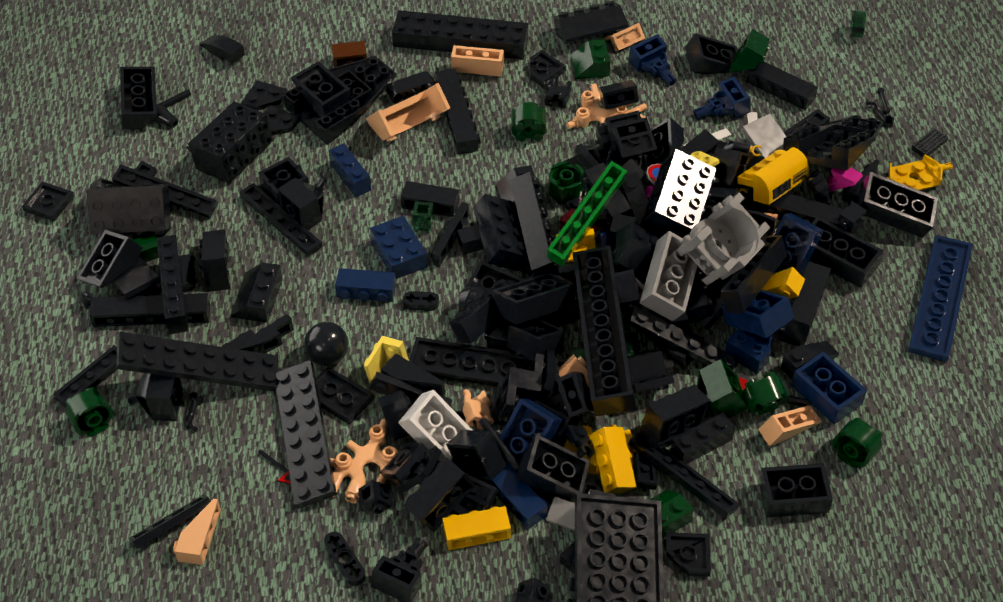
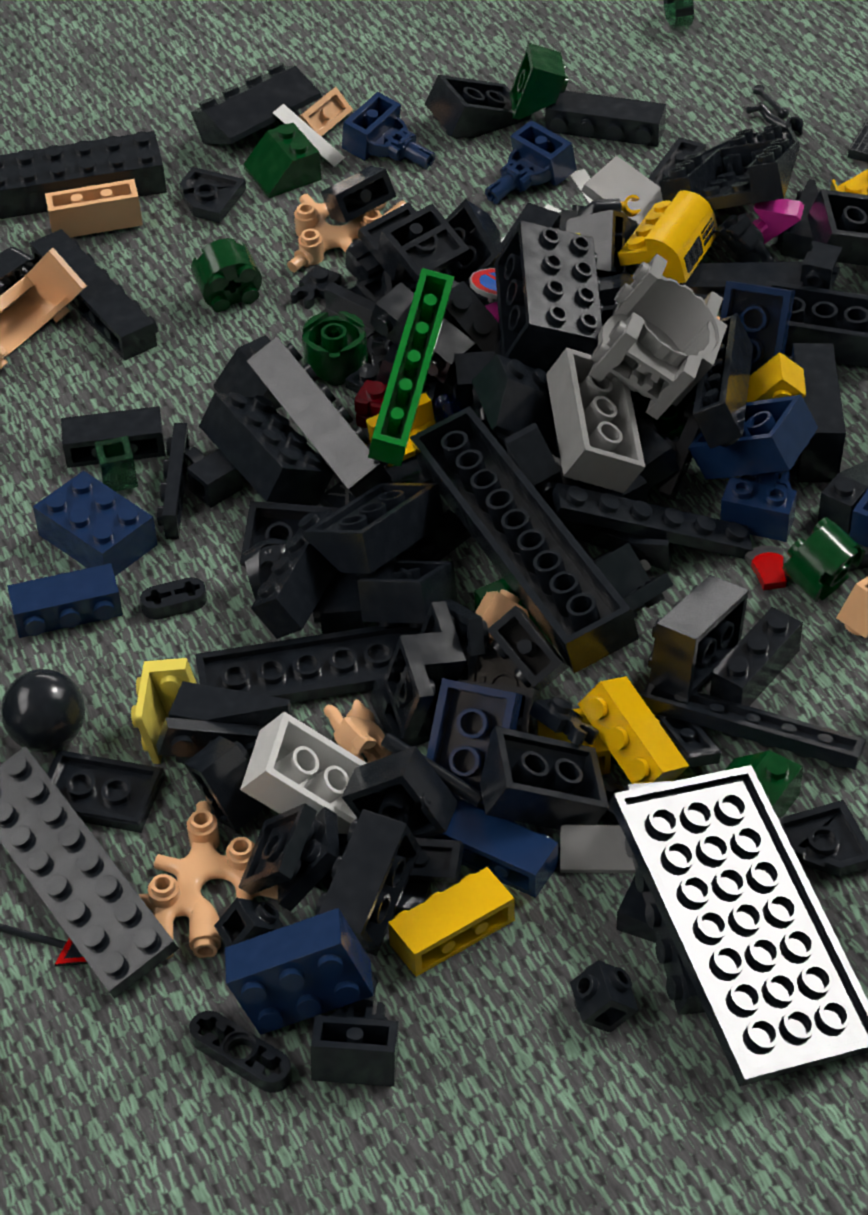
camera: 20 degrees left, 5 degrees down
(384, 529) = (298, 971): none -> dark blue brick
(556, 92) = (250, 223): black animal -> none
(575, 139) = (313, 285): none -> black plate
(613, 50) = (325, 149): none -> white sticker
(722, 389) = (746, 564): dark green piece -> none

